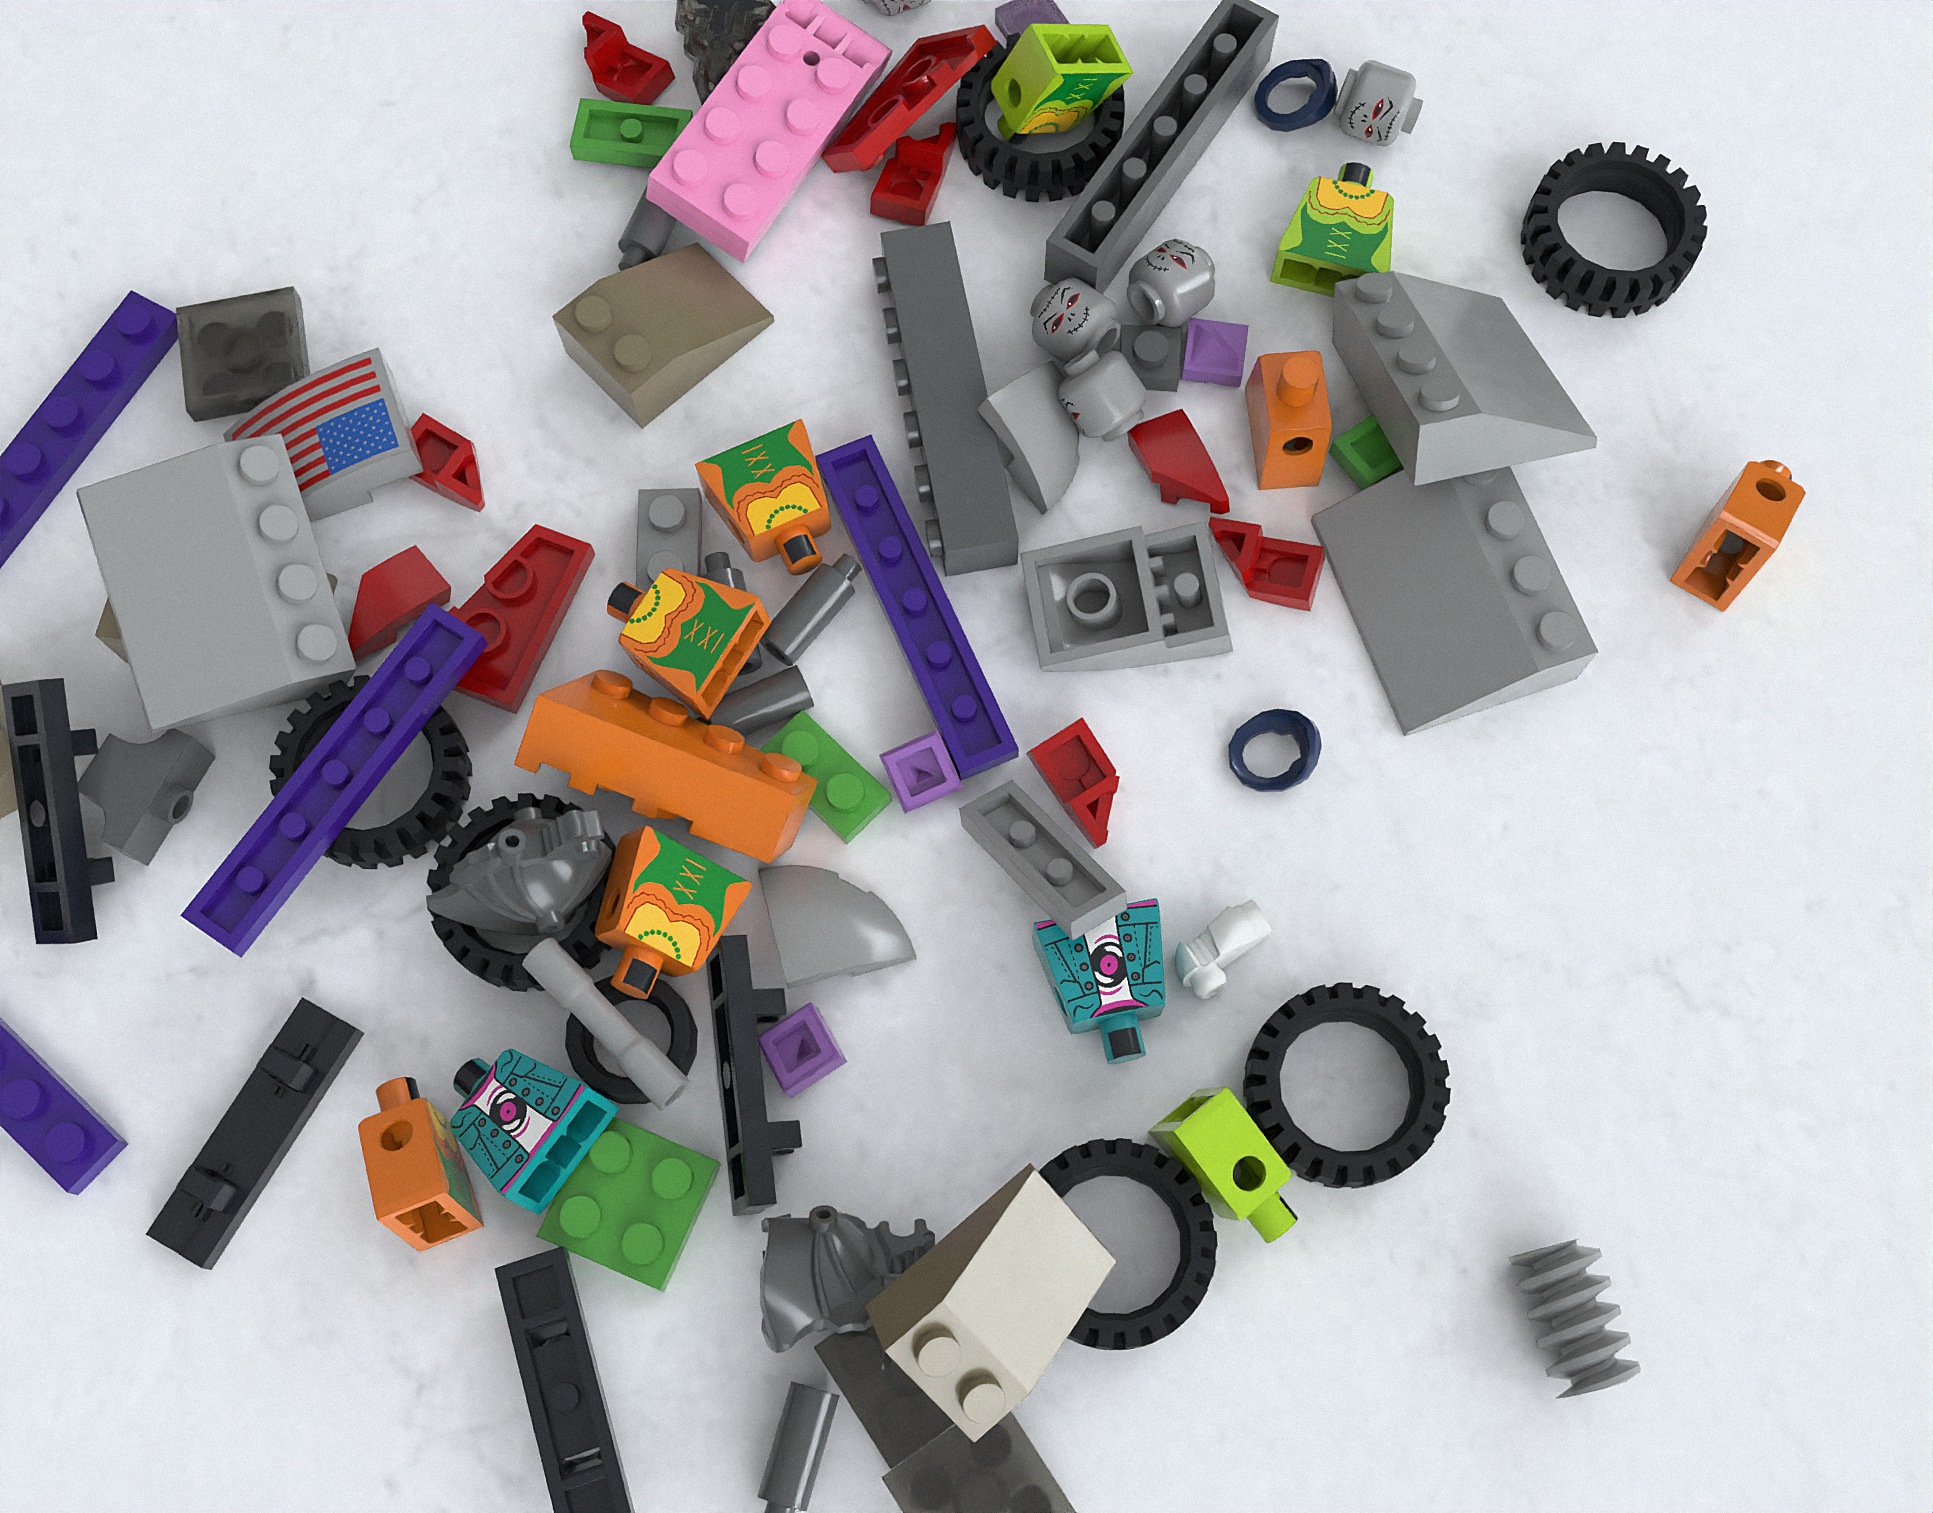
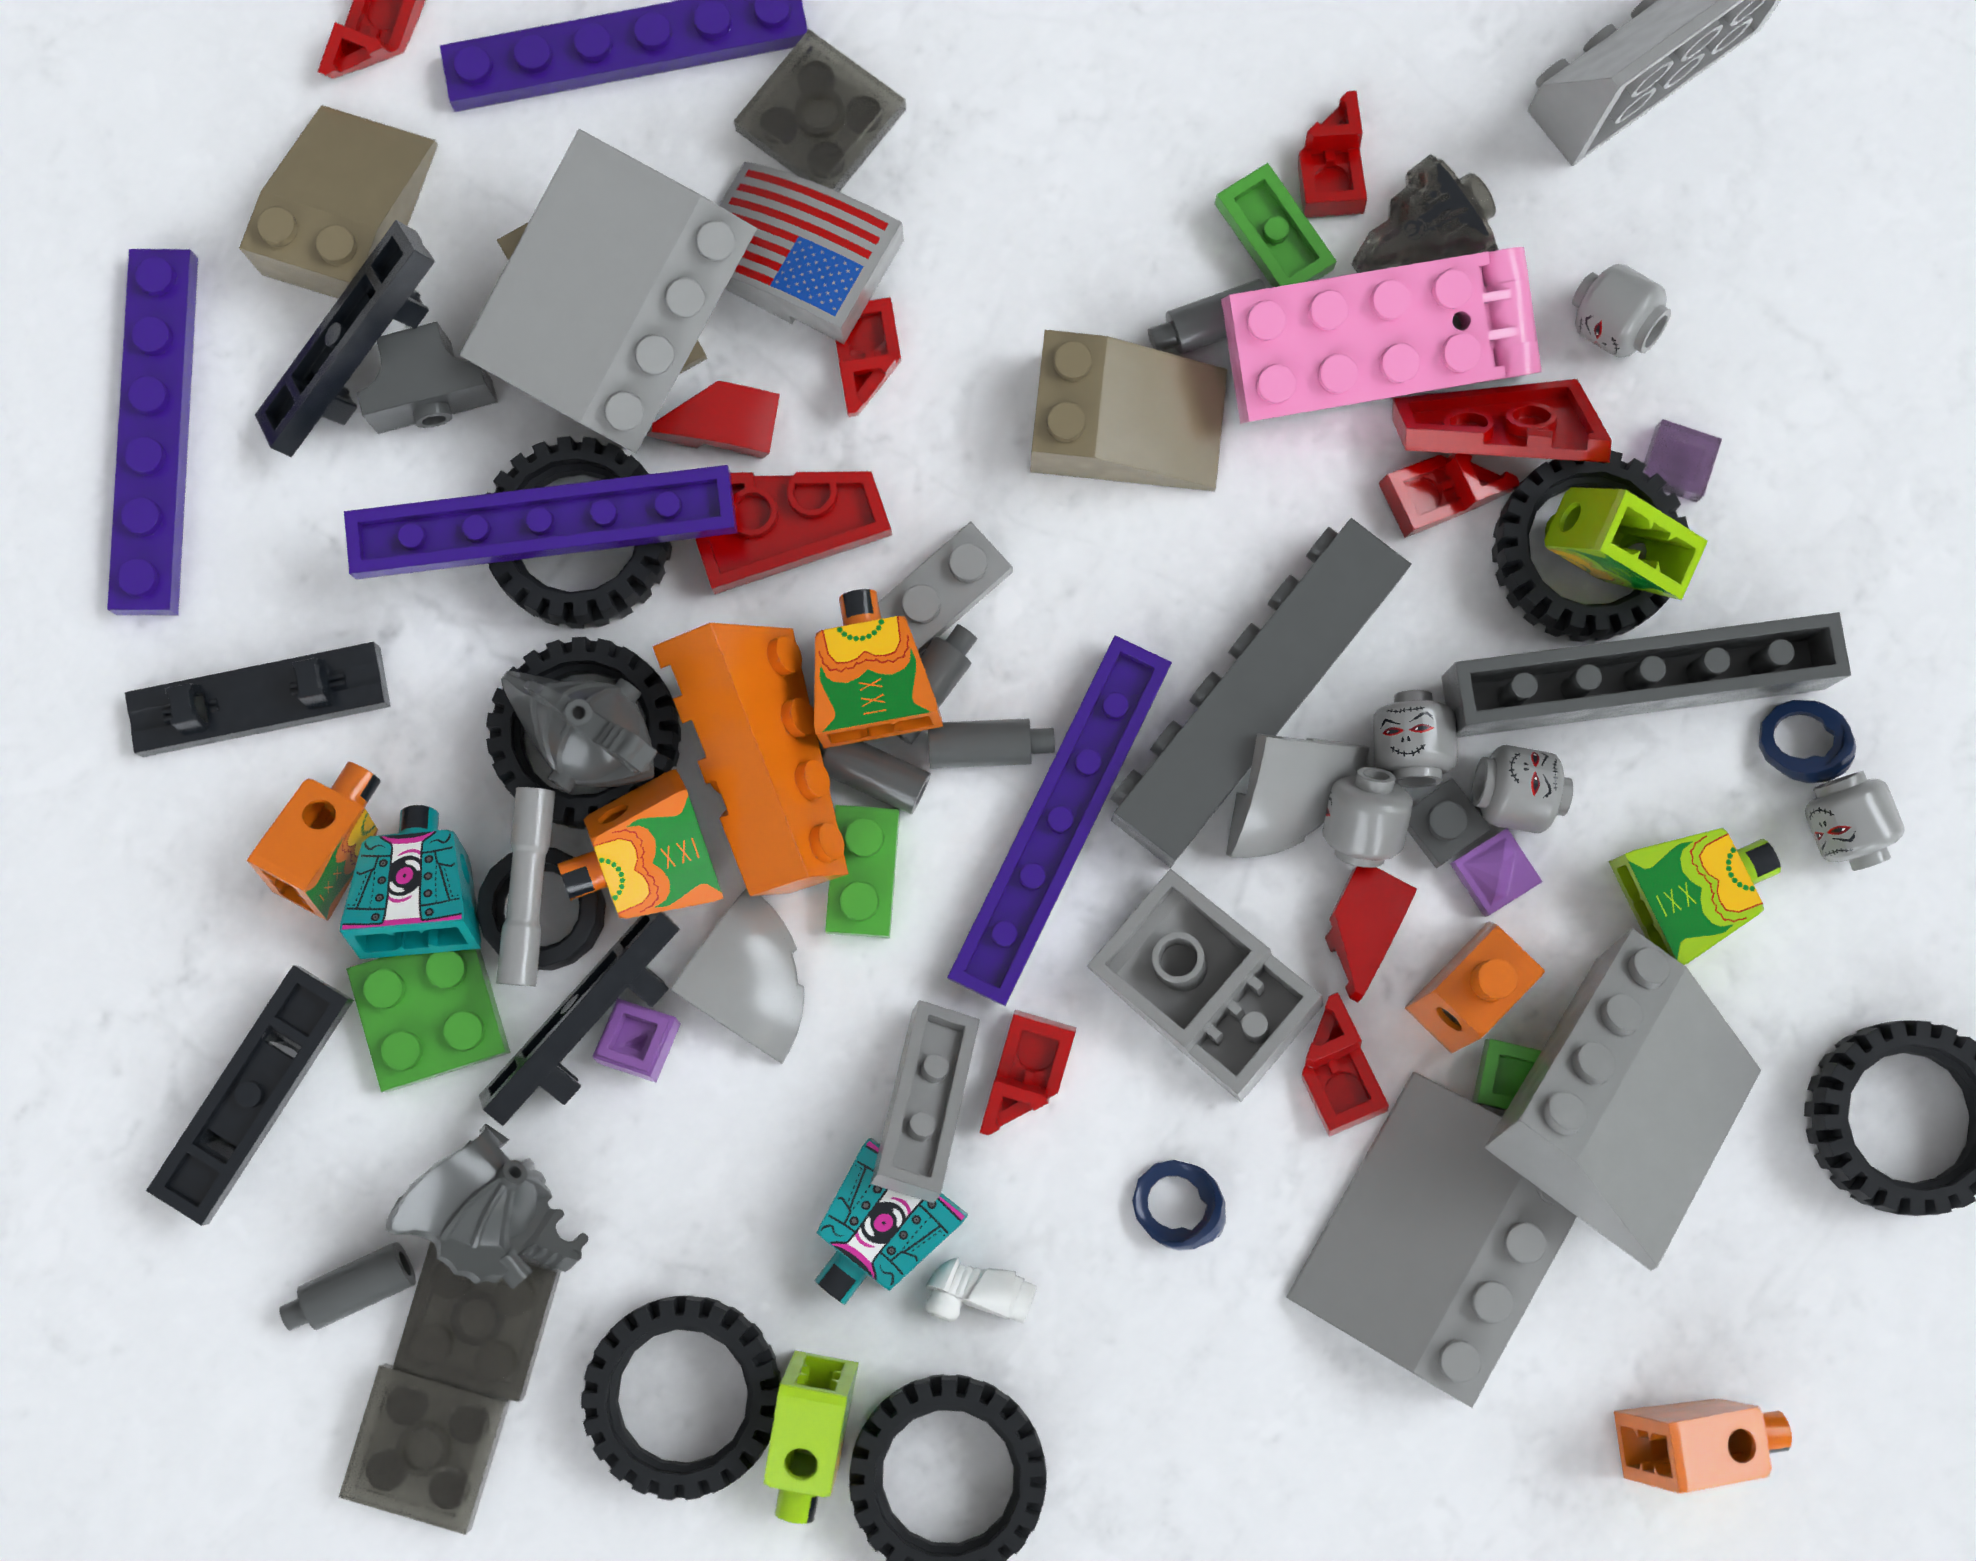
camera: 50 degrees right, 10 degrees up
(770, 496) = (1052, 632): torso -> none
(921, 771) = (926, 943): medium lavender tile -> none
(992, 1302) = (546, 1351): slope -> none

